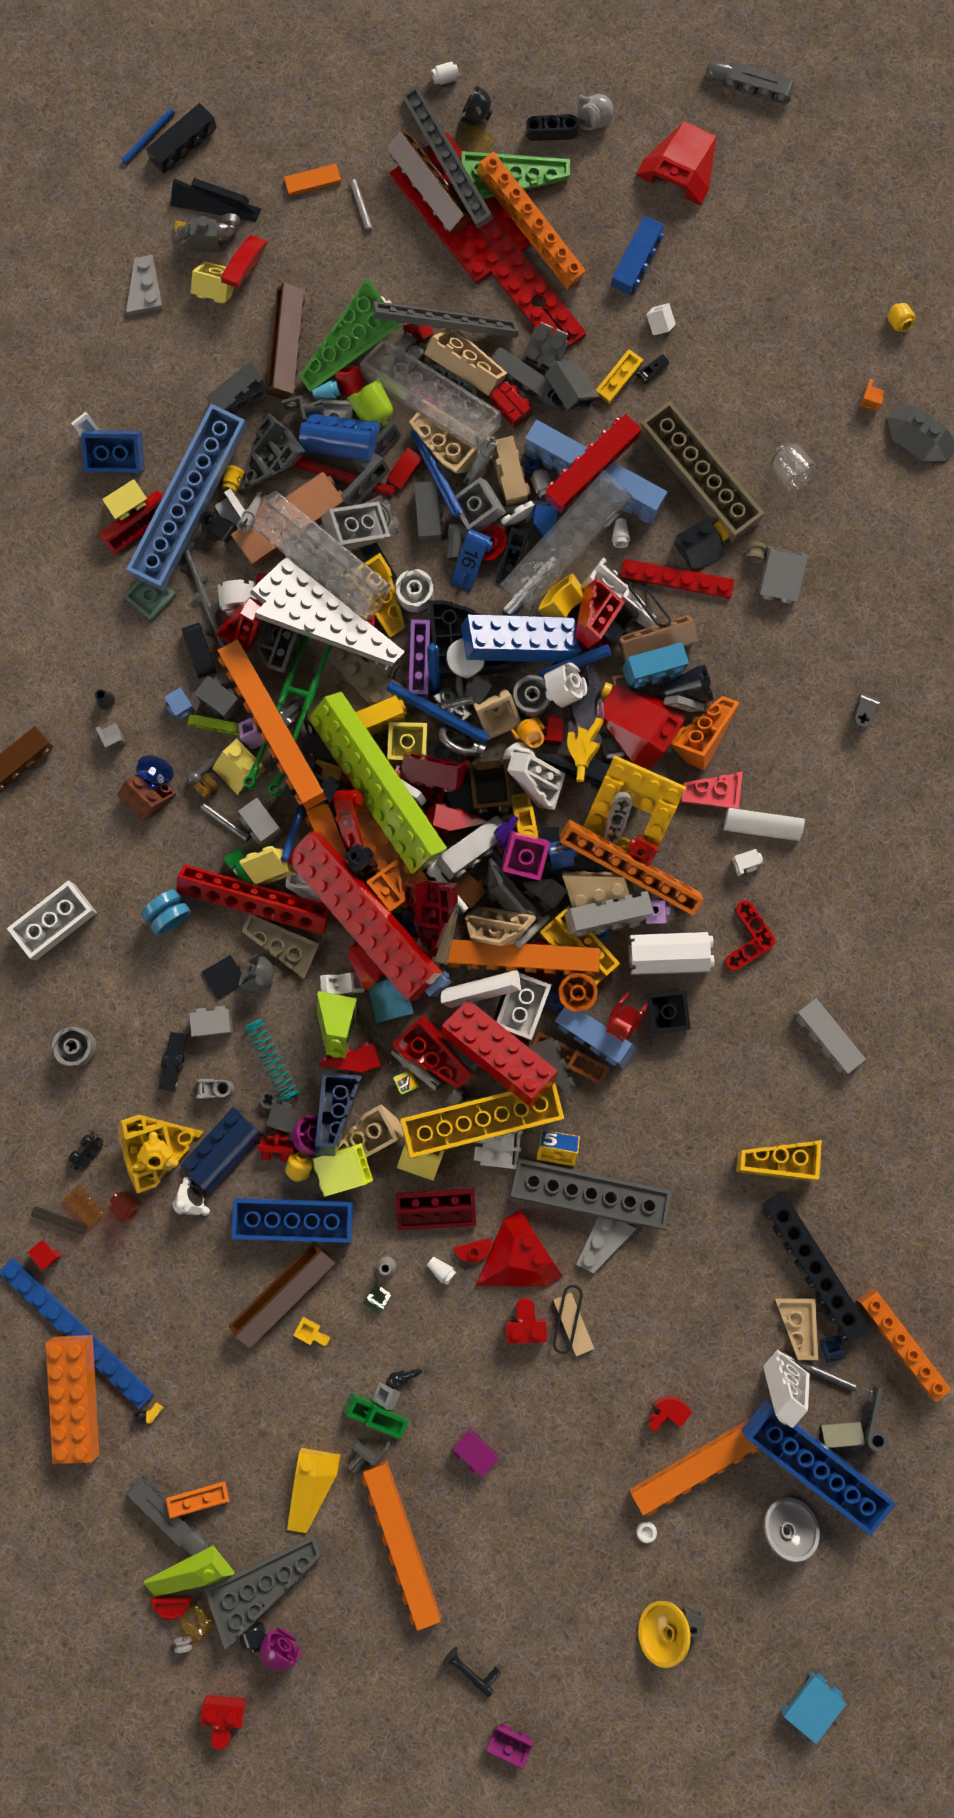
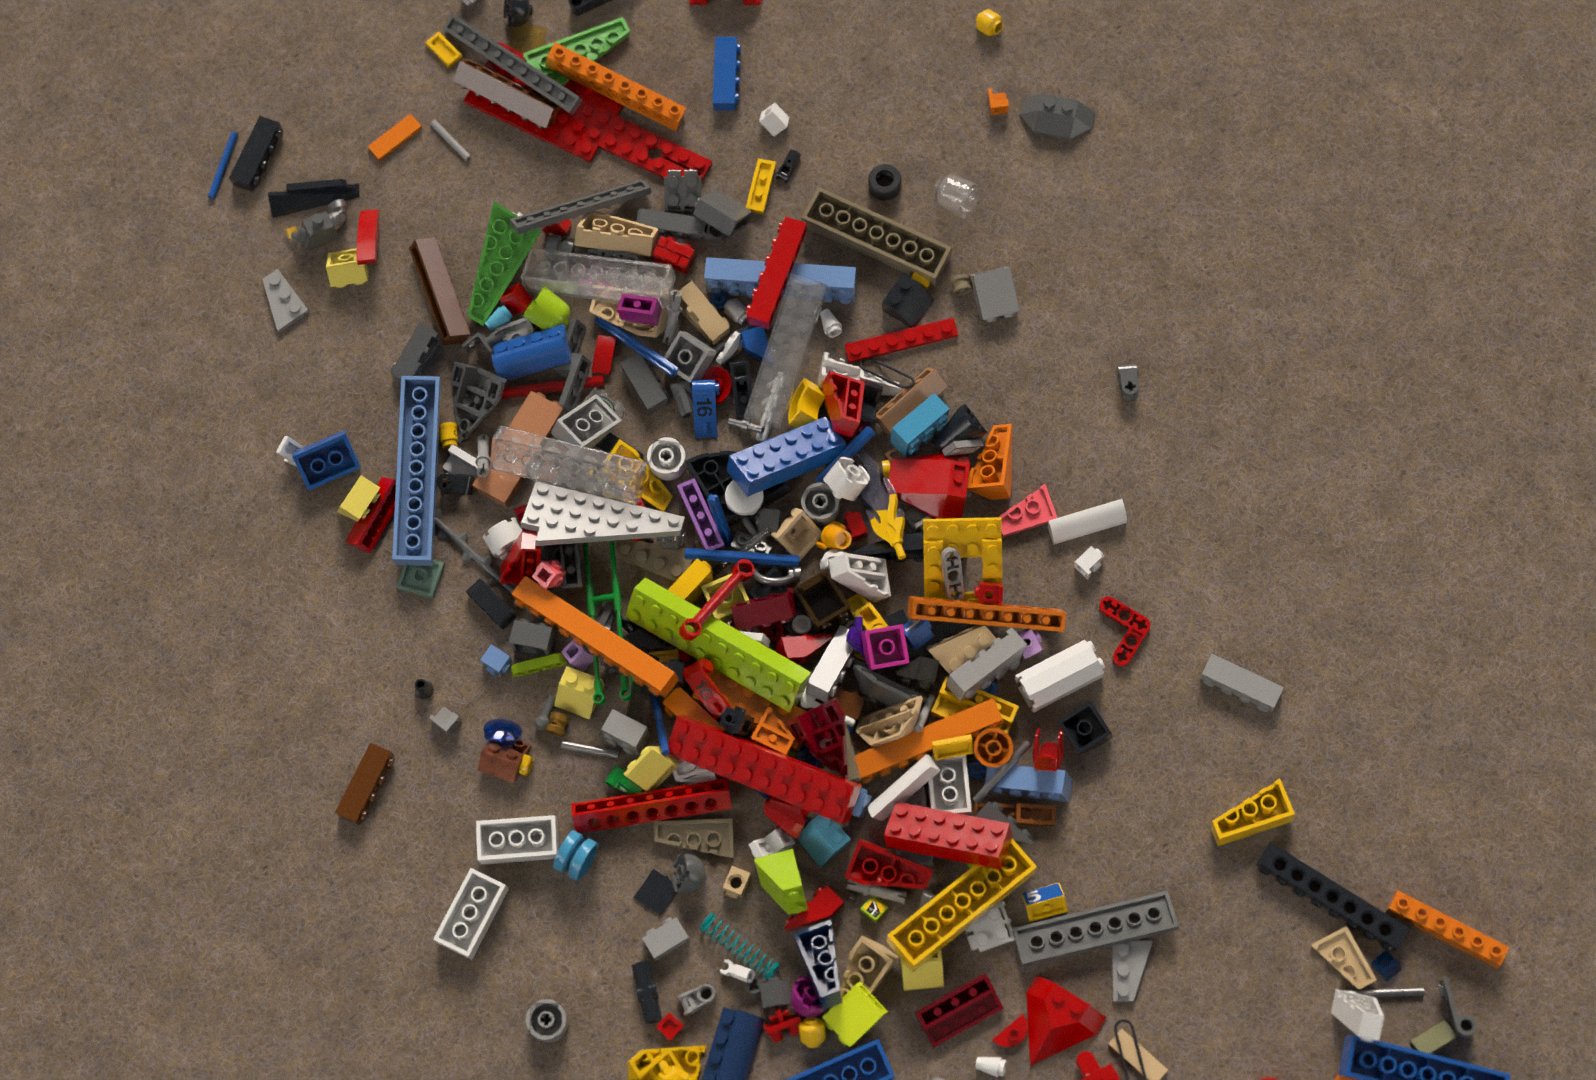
camera: 20 degrees left, 10 degrees down
(122, 873) = (517, 839): none -> white brick
(162, 810) = (526, 765): none -> yellow tile
(178, 1101) = (670, 1026): none -> red plate
(258, 648) = (549, 574): none -> coral brick
(260, 1082) = (738, 972): none -> white bar
(304, 999) = (736, 873): none -> tan brick
(393, 116) = (443, 49): none -> yellow tile
(394, 742) = (716, 600): none -> red piece
(452, 440) = (639, 309): none -> magenta brick
(462, 798) = (801, 624): none -> light grey tile
(500, 593) = (746, 425): none -> flat silver bar
(541, 975) = (952, 747): none -> yellow tile
(575, 1017) = (1001, 772): none -> flat silver bar
(733, 435) = (881, 192): none -> black tyre

